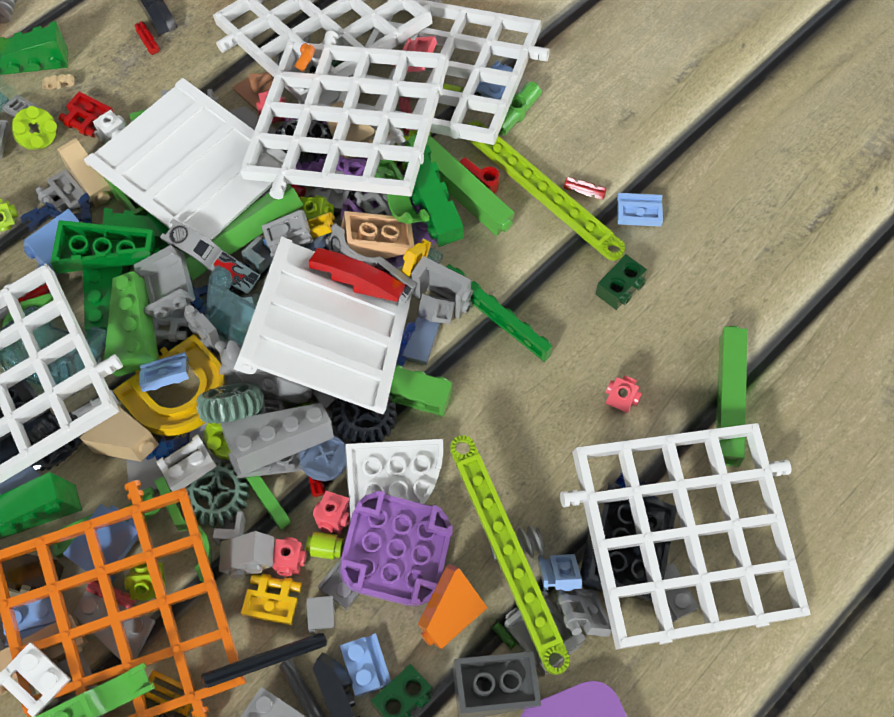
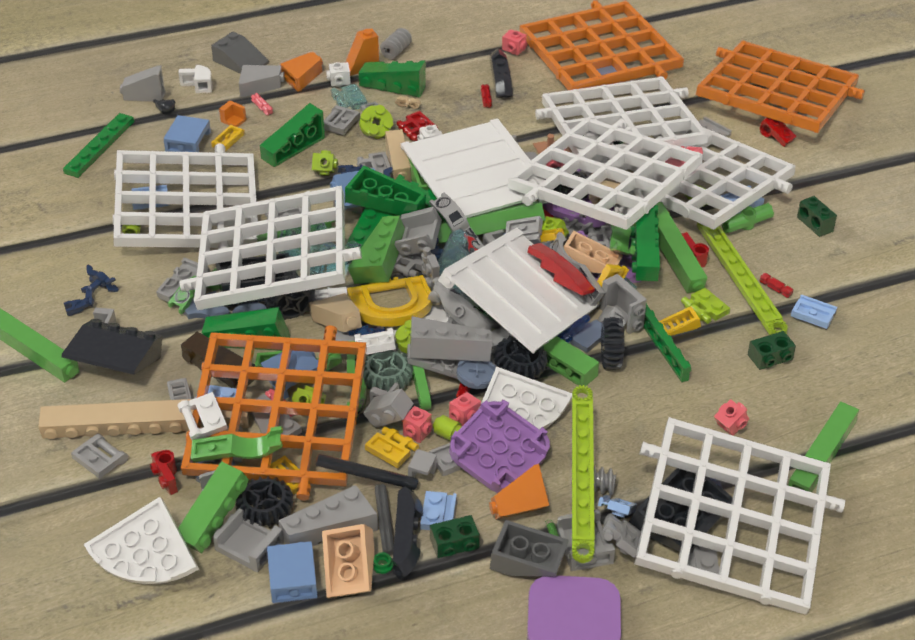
camera: 25 degrees right, 20 degrees down
(164, 372) = (395, 285): light blue plate -> none
(230, 402) = (425, 308): sand green gear -> none
(307, 52) = (596, 125): orange arm -> none
(454, 349) = (612, 343): none -> black gear
(515, 266) = (682, 315): none -> yellow slope
(526, 242) = (706, 305): none -> lime plate
(587, 77) = (816, 216): none -> dark green brick

